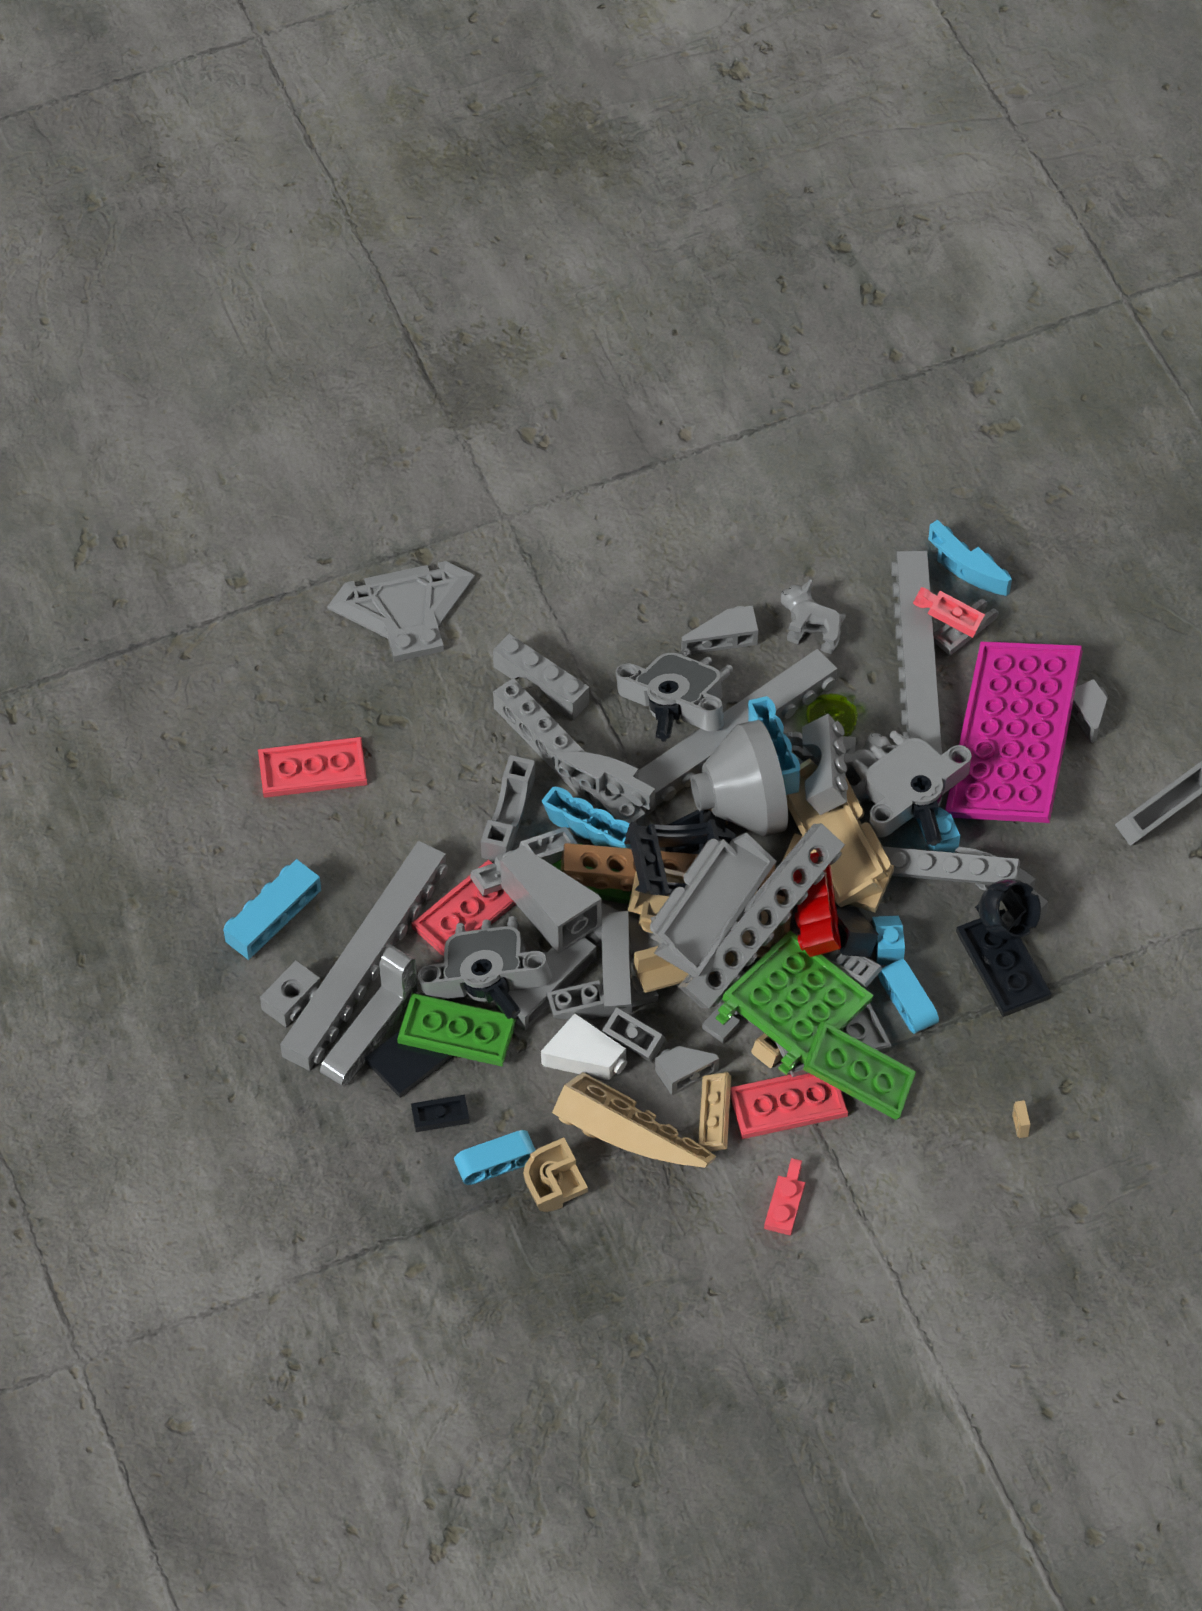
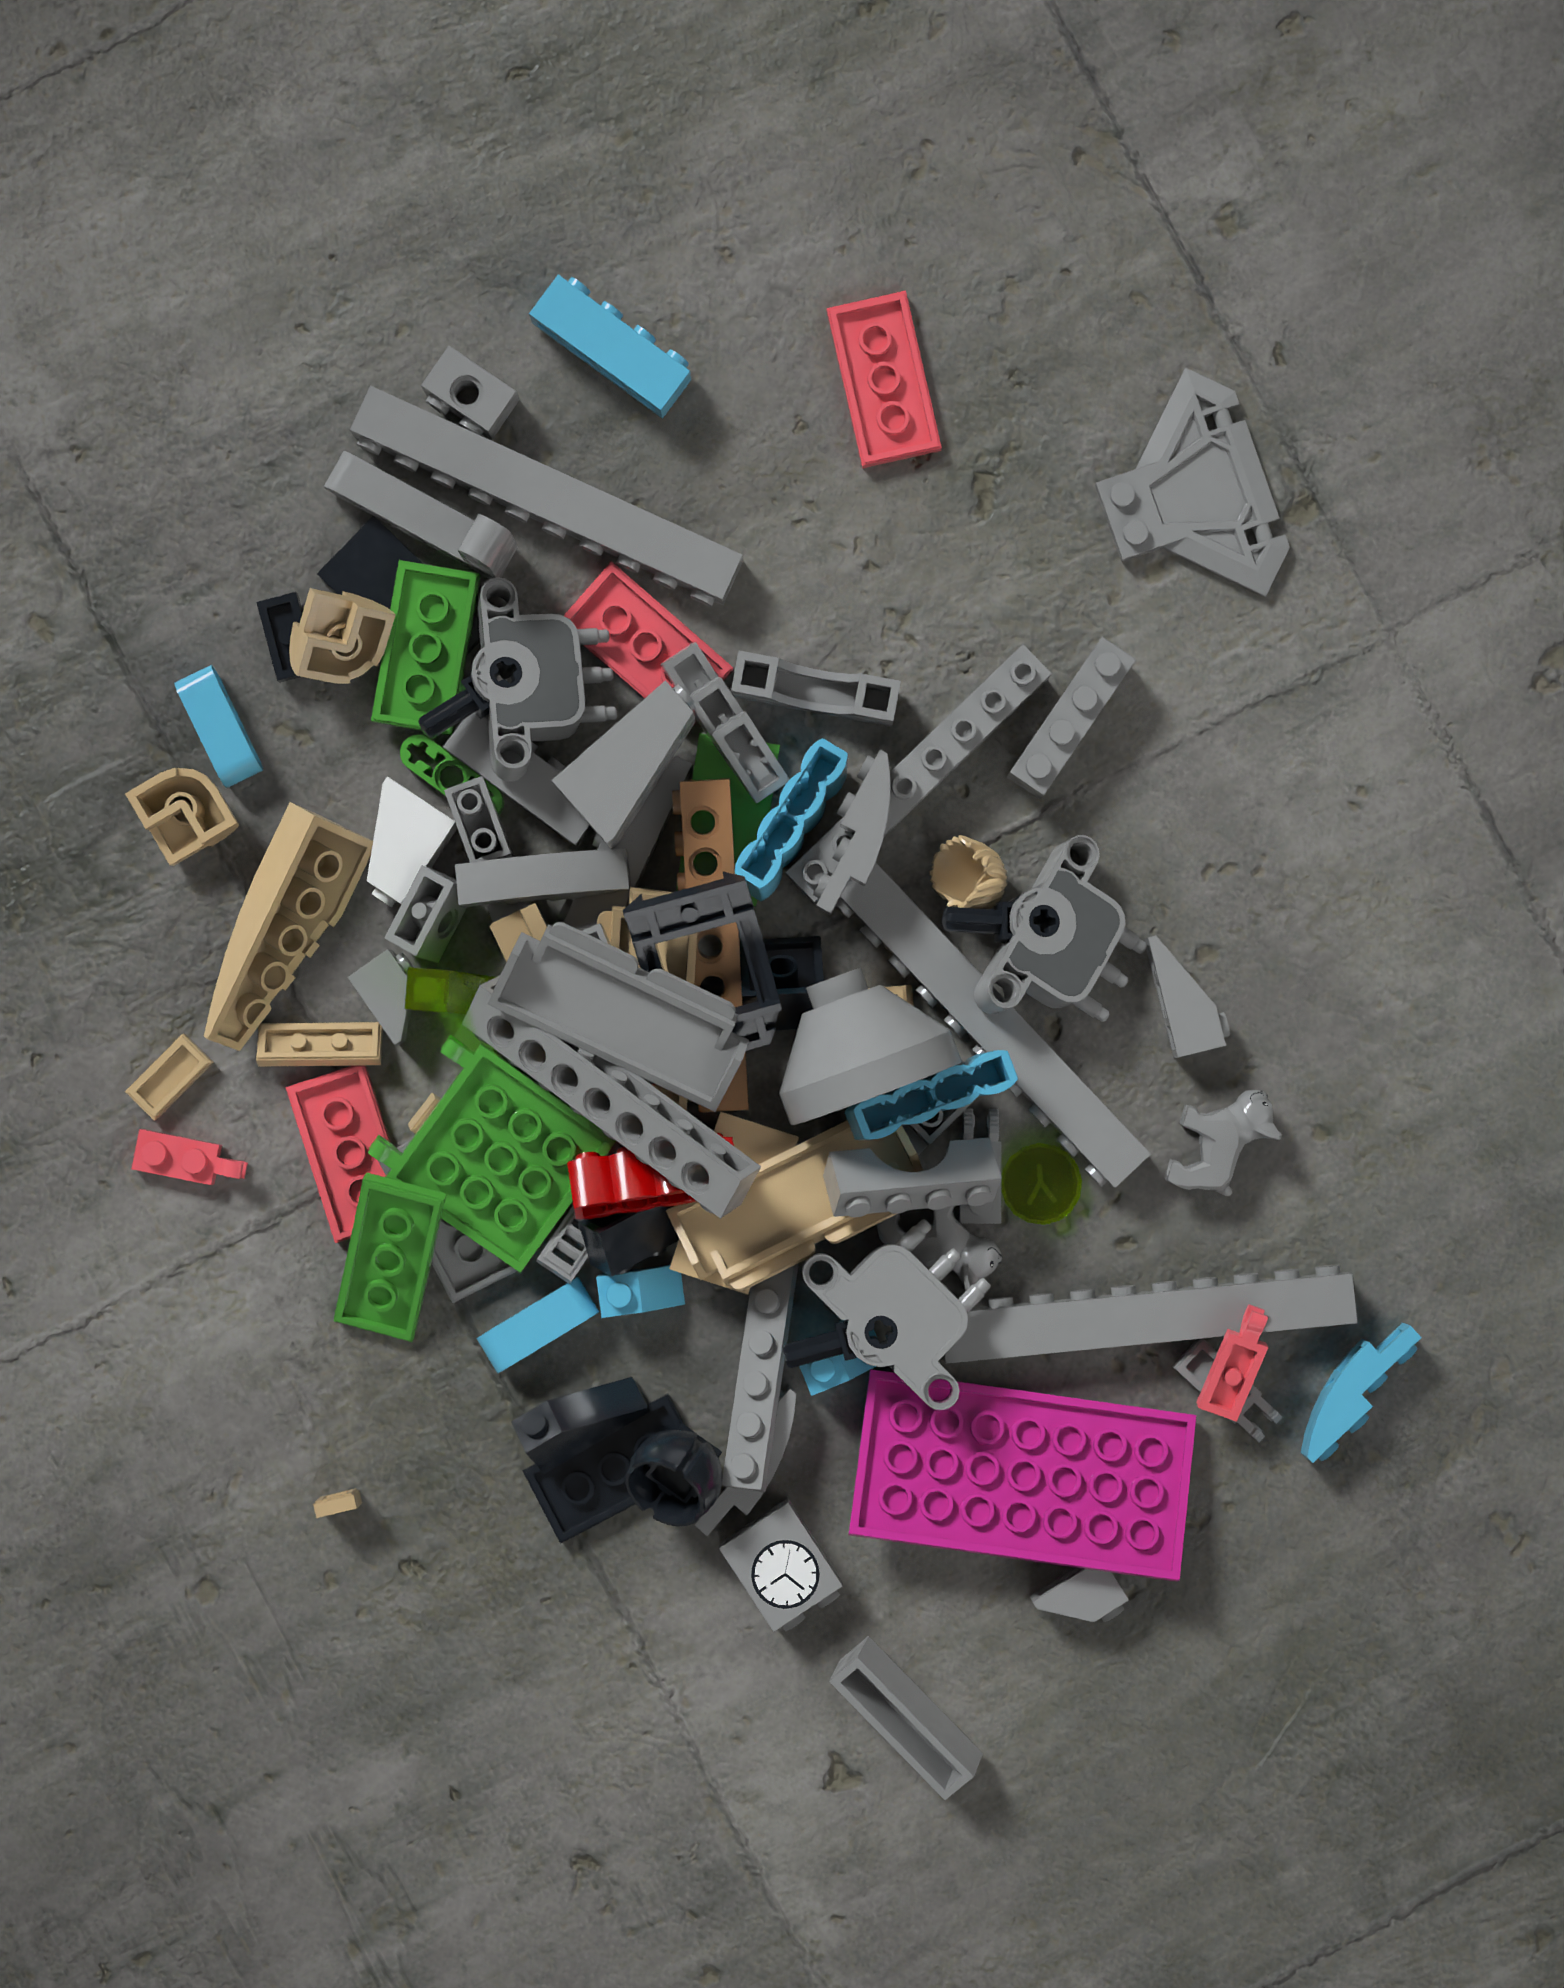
camera: 90 degrees right, 30 degrees up
(445, 1072) = (339, 636): none -> tan brick
(540, 1036) = (434, 750): none -> bright green beam
(634, 734) = (968, 874): none -> tan hair
(686, 1025) = (441, 990): none -> clear neon green slope
(730, 1207) = (169, 1076): none -> tan tile
(973, 975) = (577, 1421): none -> black slope
(1068, 868) = (782, 1566): none -> light grey brick

